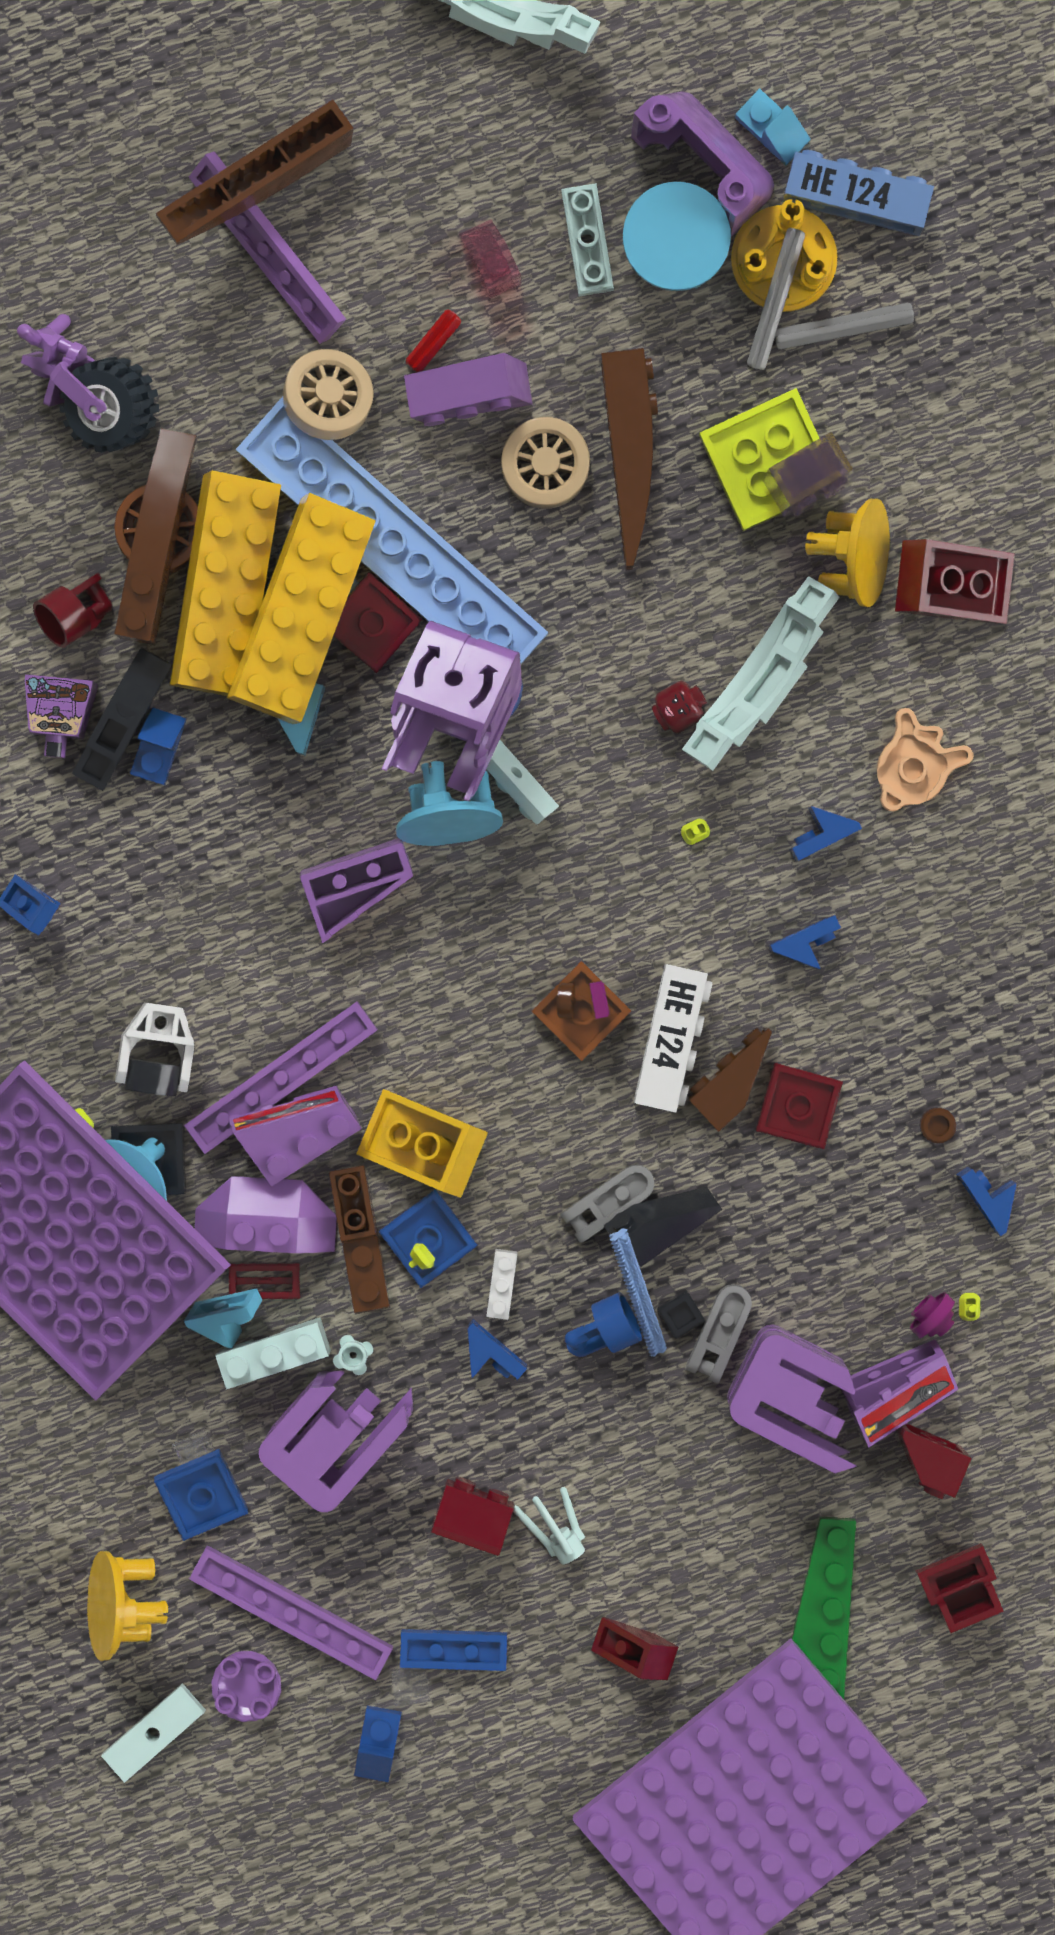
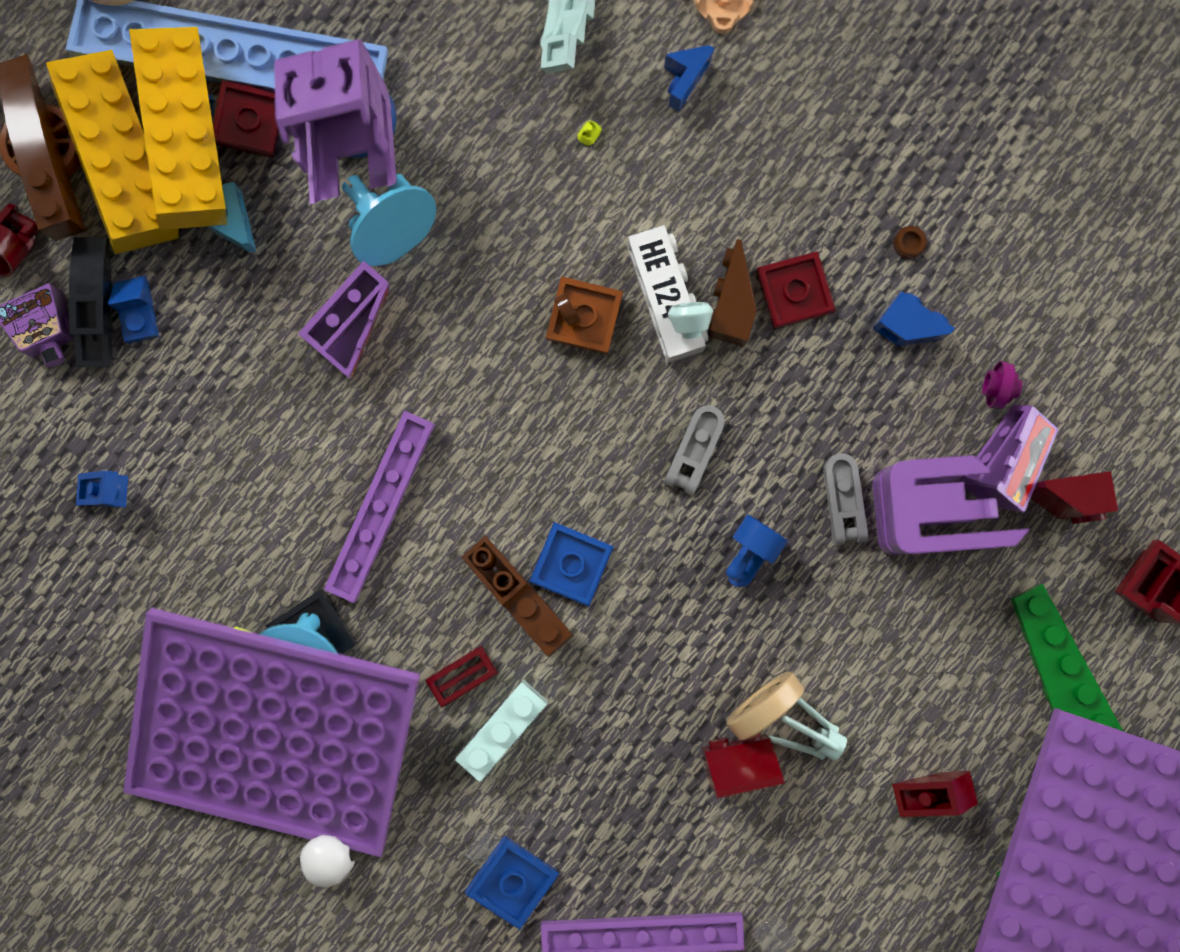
camera: 35 degrees left, 5 degrees down
(44, 1374) = (325, 861): none -> white hair
(155, 1076) = (276, 563): white piece -> none
(222, 1316) = (443, 725): medium azure slope -> none
(264, 1218) = (433, 622): medium lavender wedge -> none
(295, 1132) = (414, 541): medium lavender wedge -> none
(308, 1459) = (580, 802): medium lavender piece -> none
(343, 1358) = (560, 686): light aqua plate -> none
(421, 1257) = (574, 580): neon yellow rock -> none
(422, 1143) = (522, 490): yellow slope -> none
(453, 1650) = (791, 885): blue plate -> none
(484, 1345) = (667, 621): blue slope -> none
(502, 1284) = (651, 565): white piece -> none
(520, 785) = (427, 172): light aqua tile -> none
(526, 1477) = (765, 706): none -> tan wheel
(599, 999) = (592, 293): magenta tile -> none
(638, 1292) = (762, 502): light blue axle -> none
(664, 1221) = (742, 446): black slope -> none
(675, 1081) = (691, 318): none -> light aqua cone
(679, 706) = (520, 44): dark red head -> none
(681, 1314) = (805, 504): black tile -> none
(797, 944) = (722, 166): blue slope -> none
(884, 1203) = (911, 323): none -> blue slope
(969, 1306) = (1022, 365): neon yellow rock -> none
(994, 1206) = (992, 276): blue slope -> none

